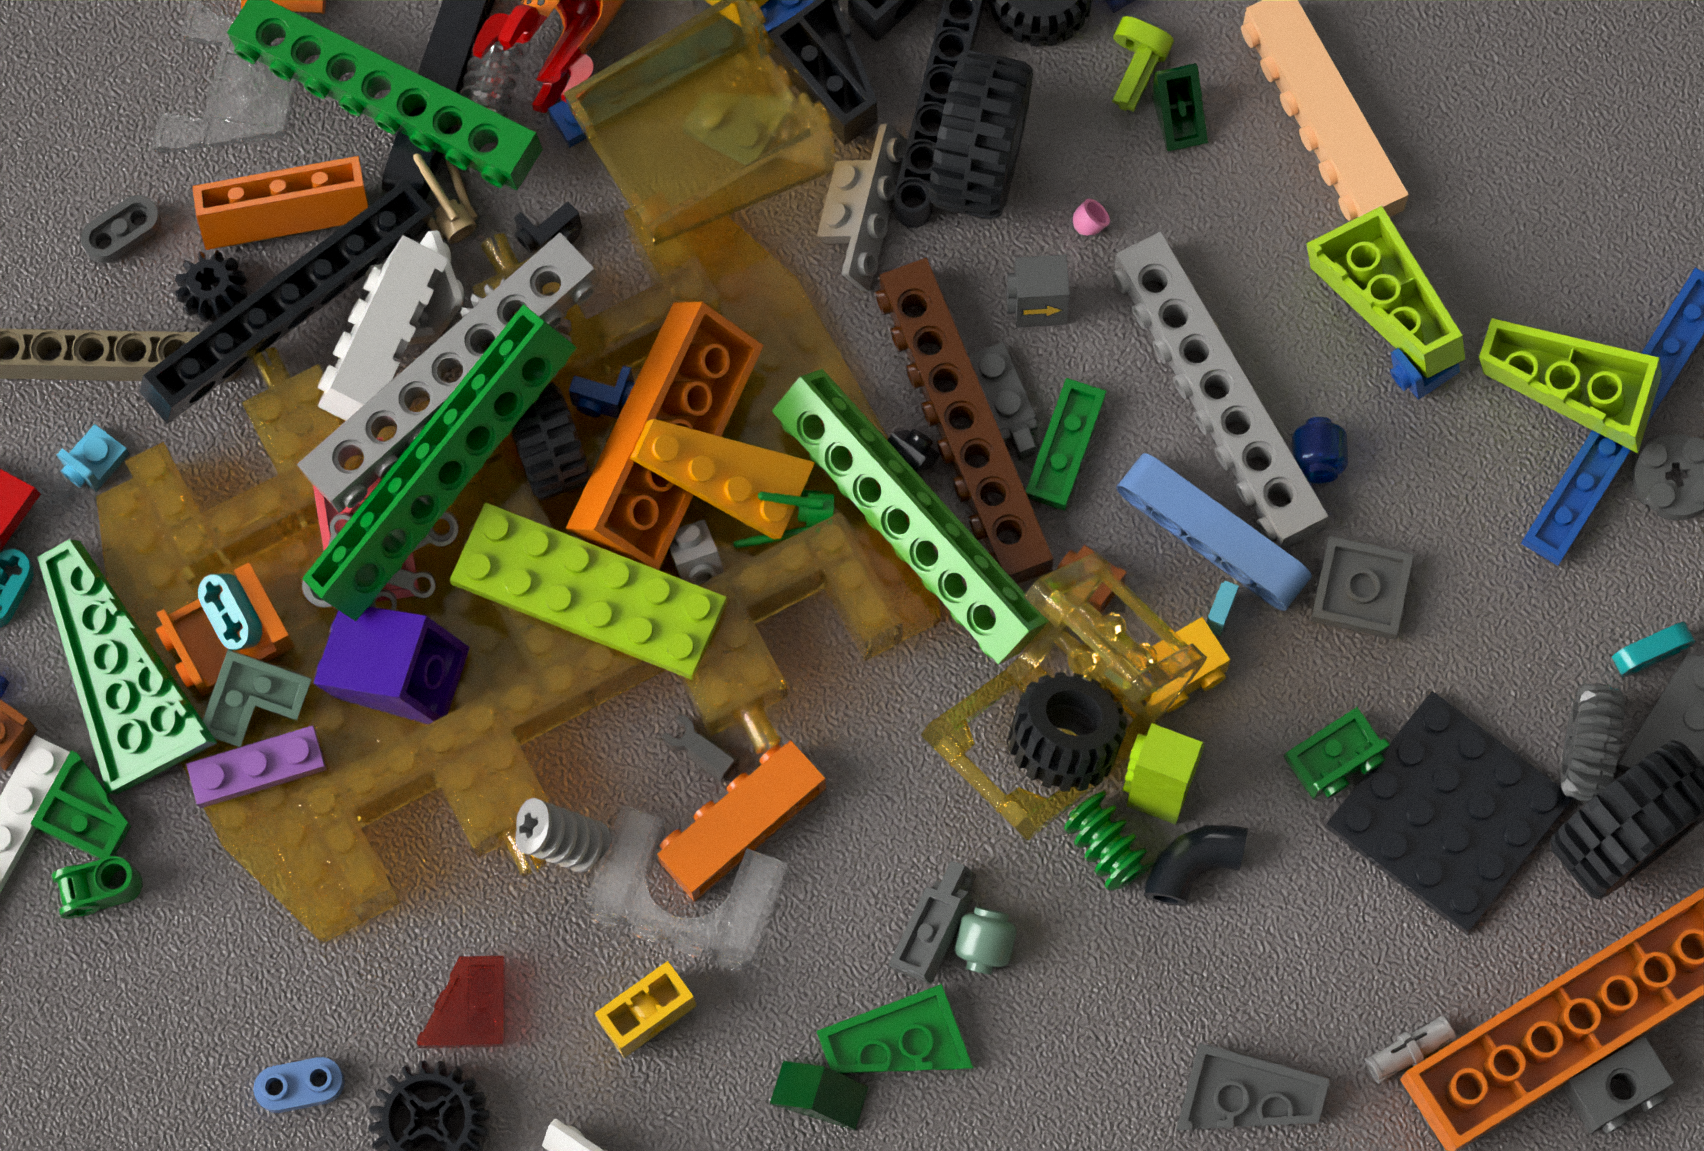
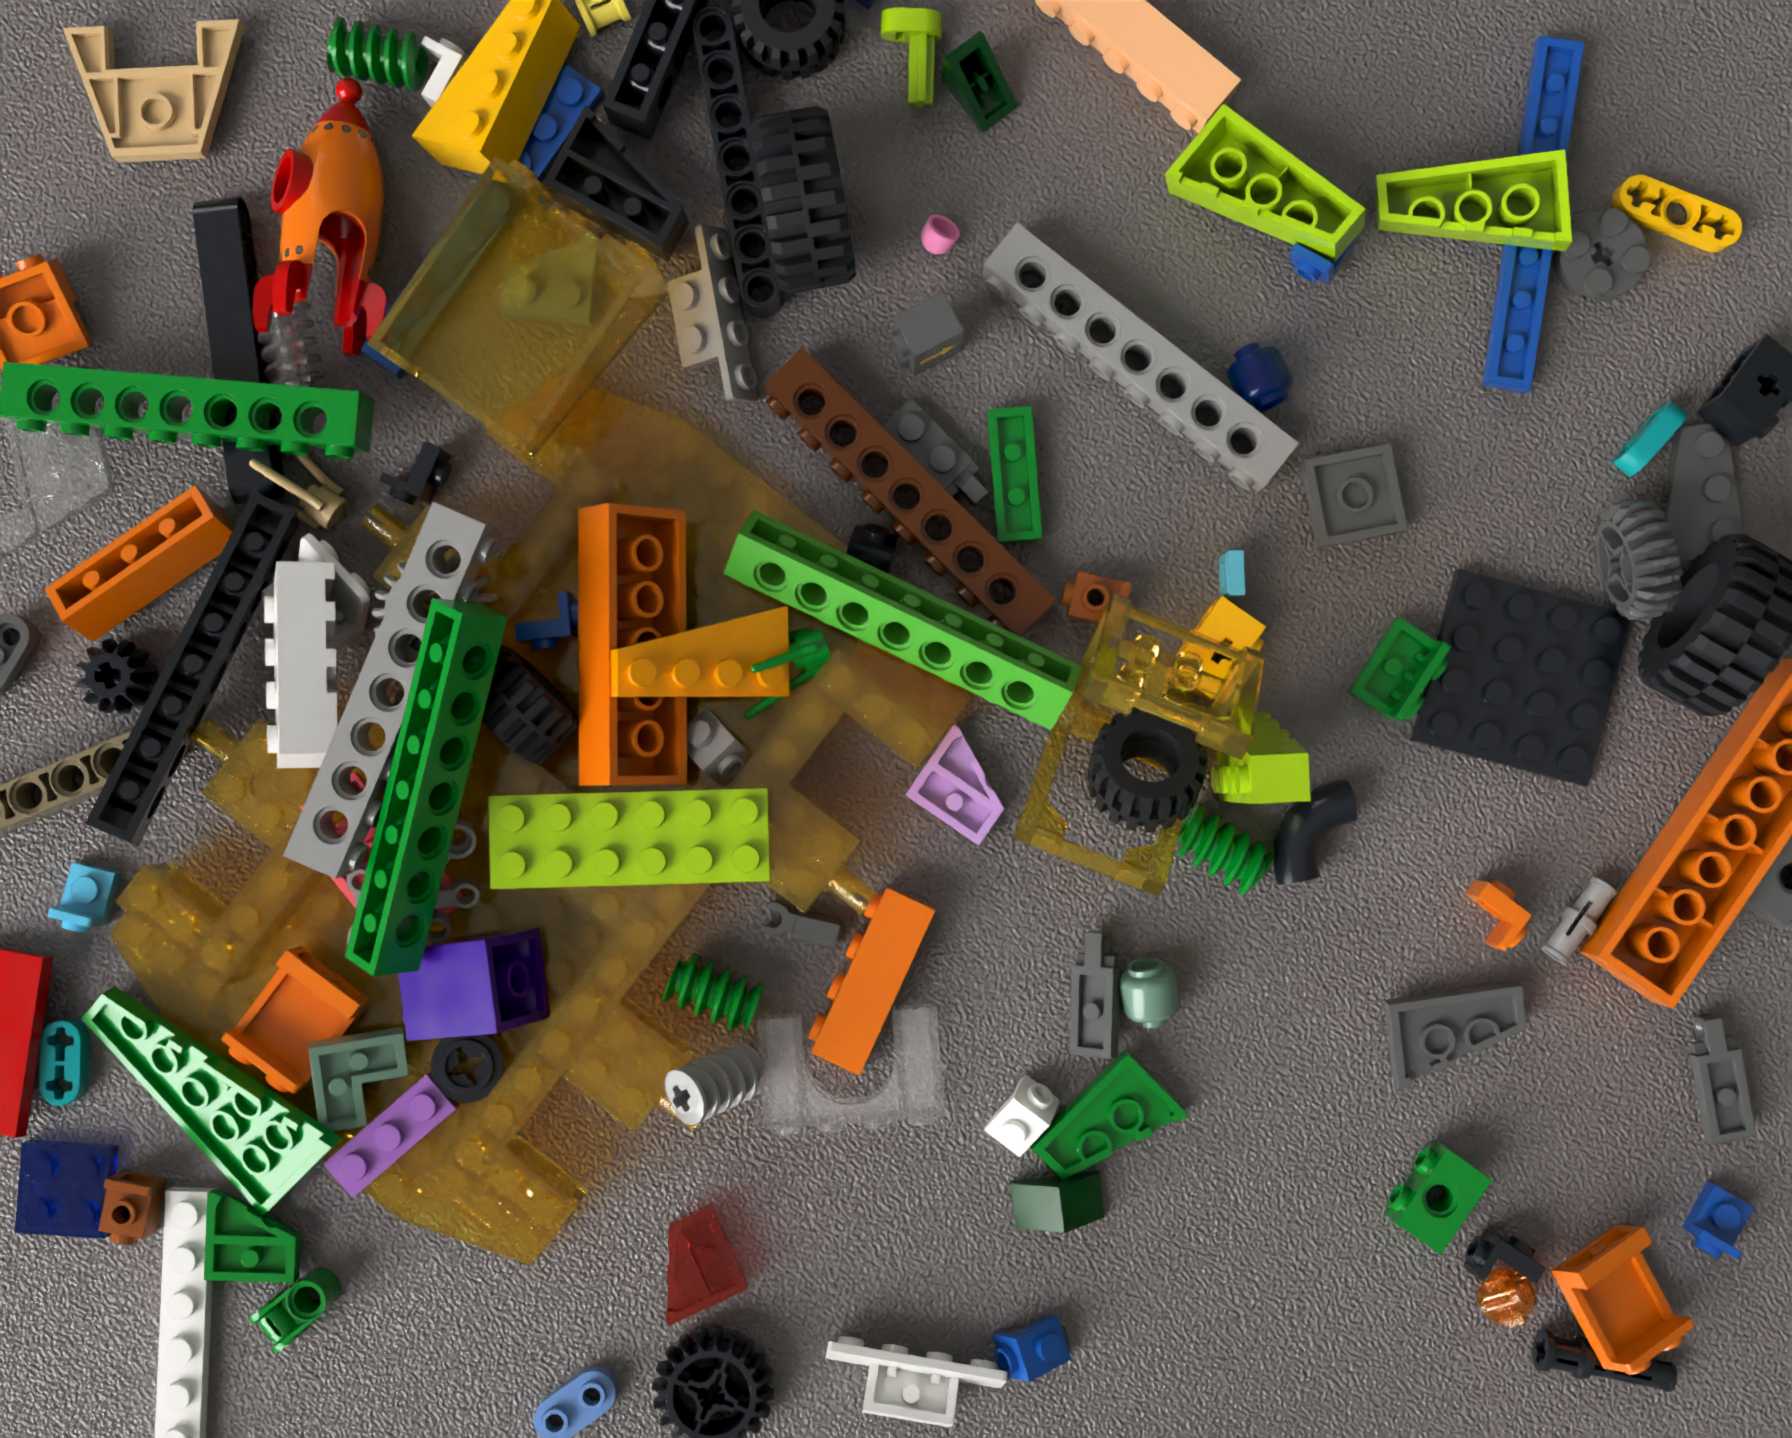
camera: 30 degrees left, 15 degrees up
(230, 611) = (291, 1004): teal beam -> none
(337, 722) = (462, 1086): none -> black gear
(593, 770) = (713, 993): none -> green piece
(645, 1009) = (866, 1202): yellow brick -> none
(821, 1002) = (1023, 1116): none -> white bracket
(892, 689) = (957, 789): none -> lavender wing
(1214, 532) = (1191, 501): medium blue beam -> none
(1341, 997) = (1499, 902): none -> orange bracket

